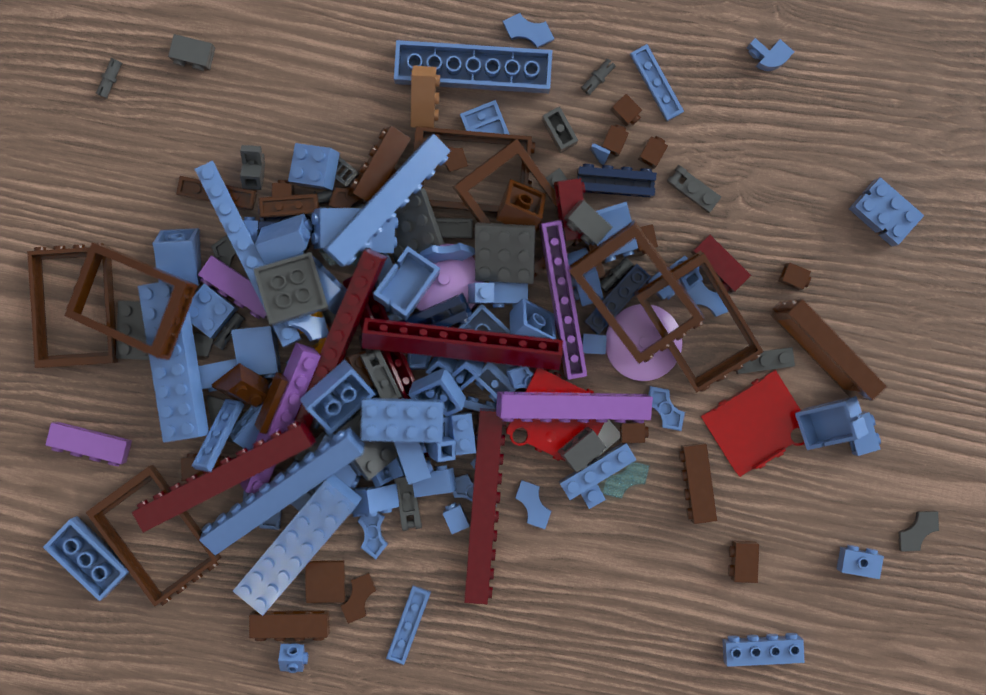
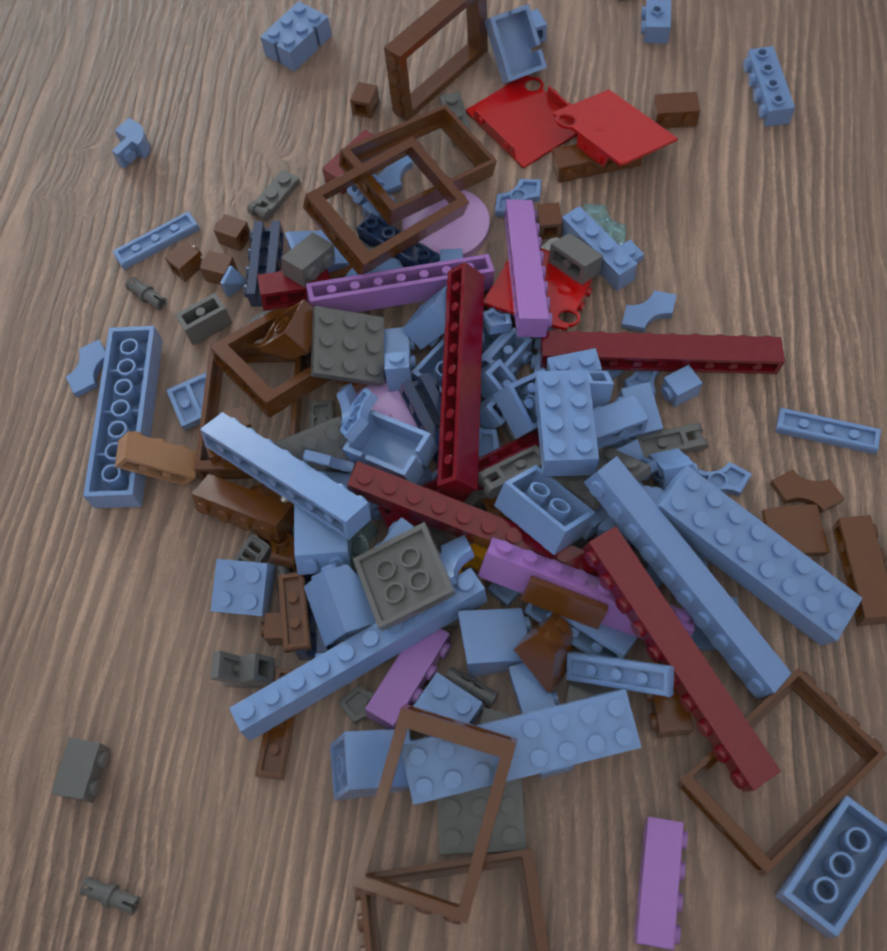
camera: 90 degrees left, 25 degrees down
(398, 234) = (327, 461): none -> medium blue tile
(442, 262) = (358, 415): none -> medium blue tile
(720, 502) = (613, 129): none -> red piece

